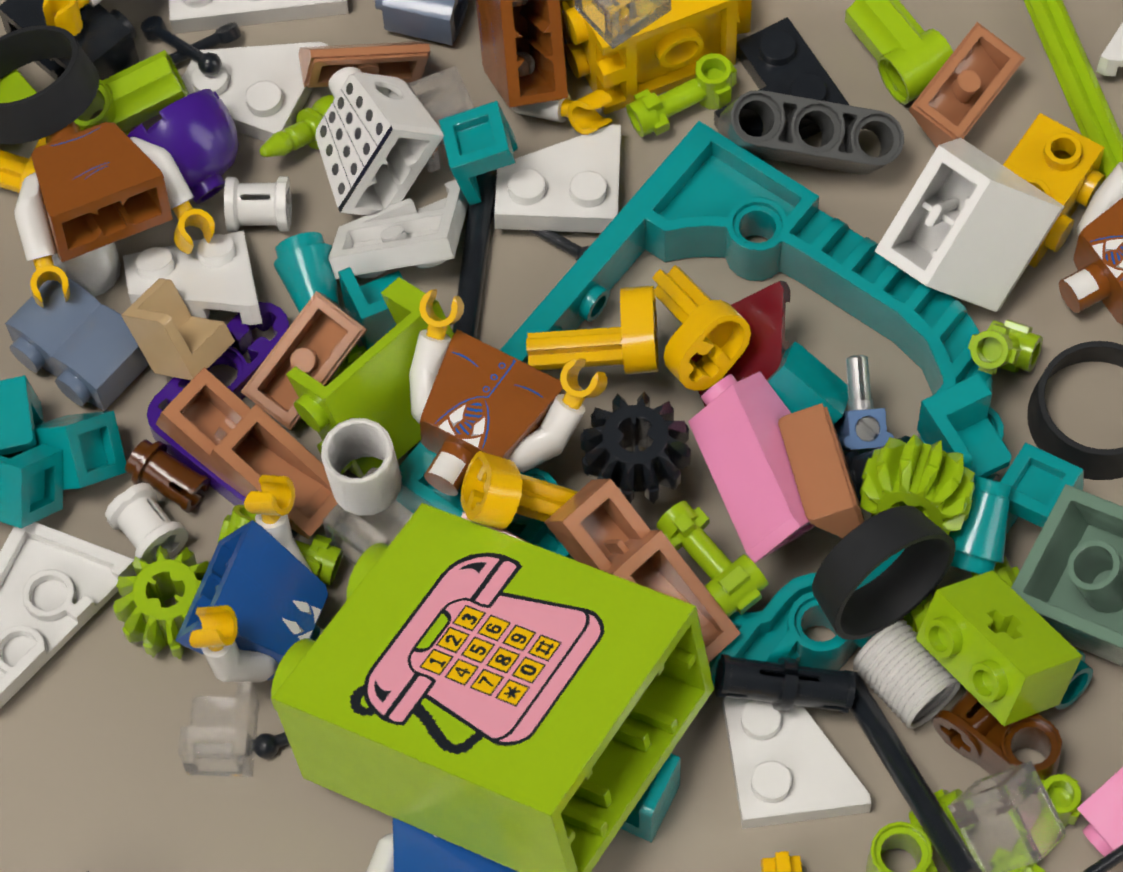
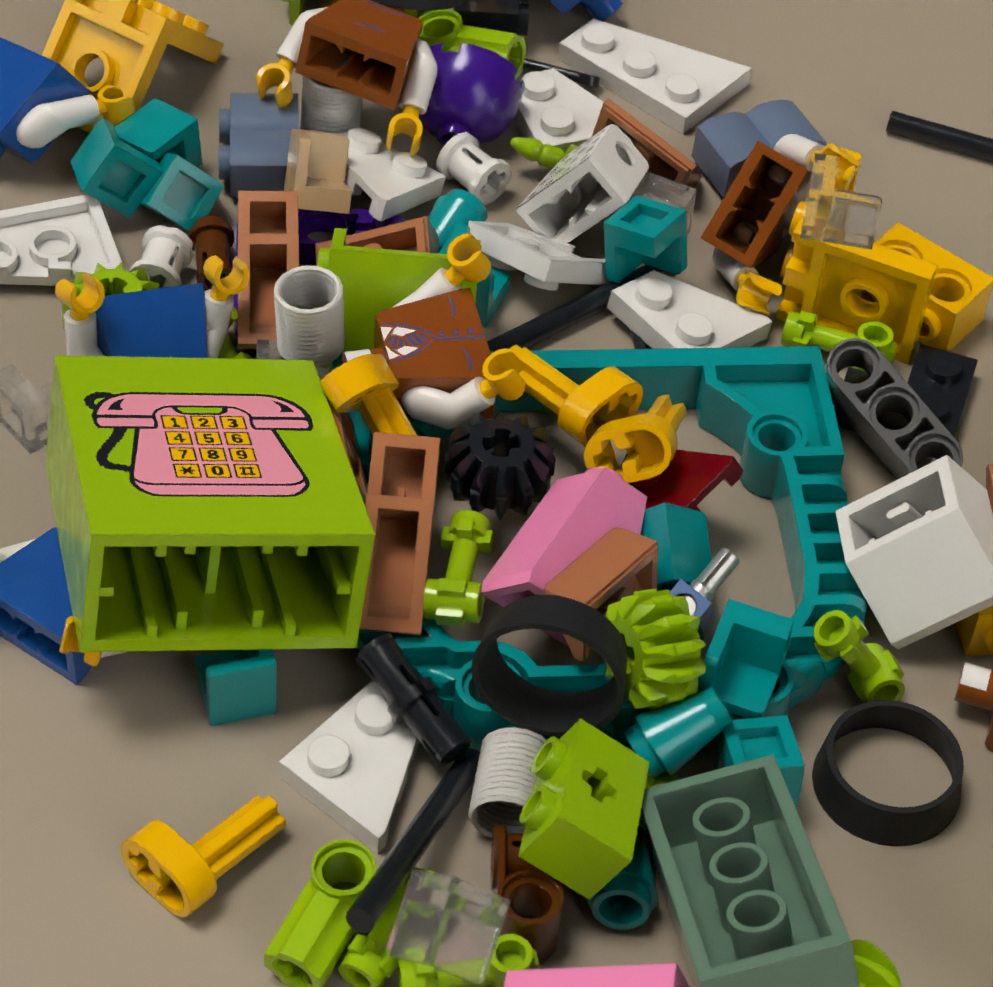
camera: 40 degrees right, 15 degrees down
(154, 29) = (546, 71): black hinge -> none

